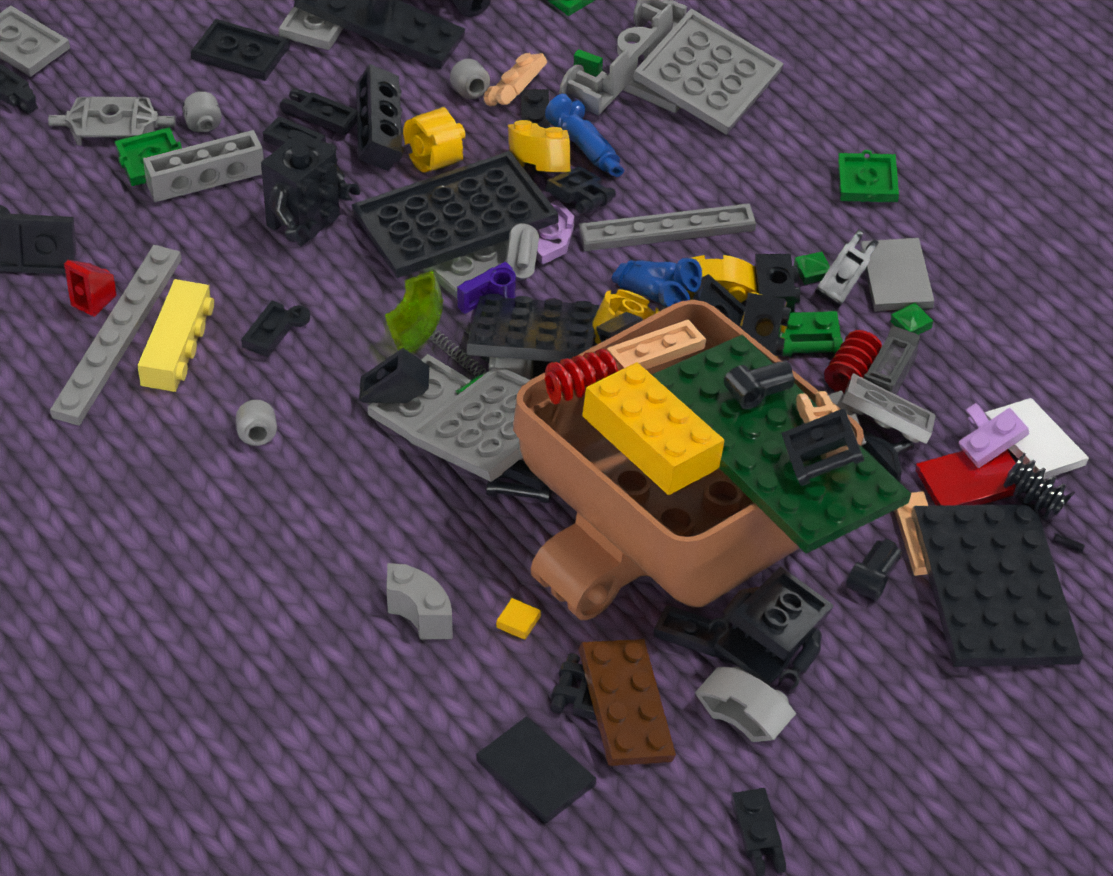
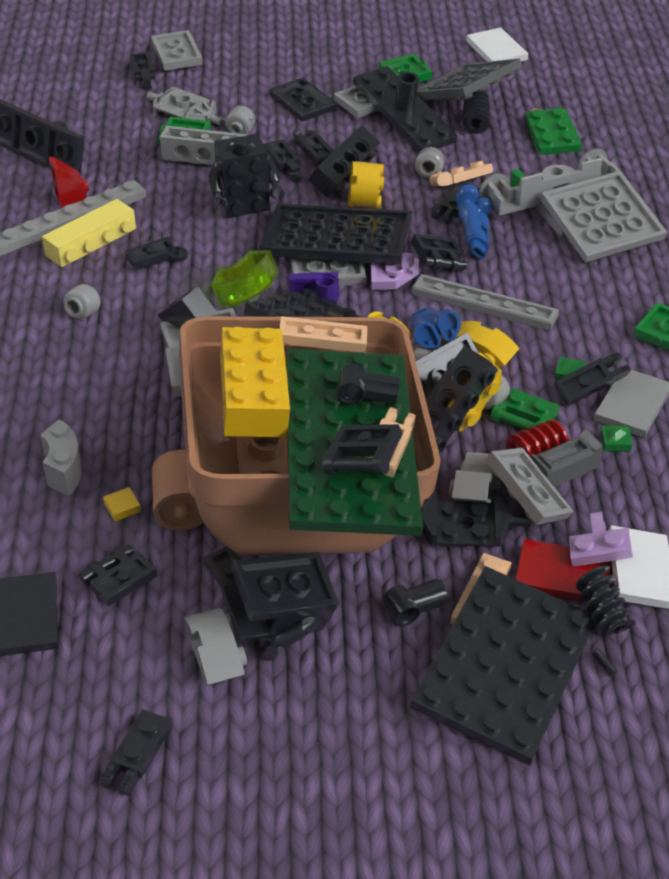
camera: 35 degrees right, 5 degrees down
(522, 250) = (357, 272): light grey piece -> none
(540, 146) = (433, 215): yellow brick -> none
(577, 374) = (217, 319): red piece -> none
(626, 702) = (128, 598): reddish brown plate -> none
(777, 277) = (527, 366): black brick -> none

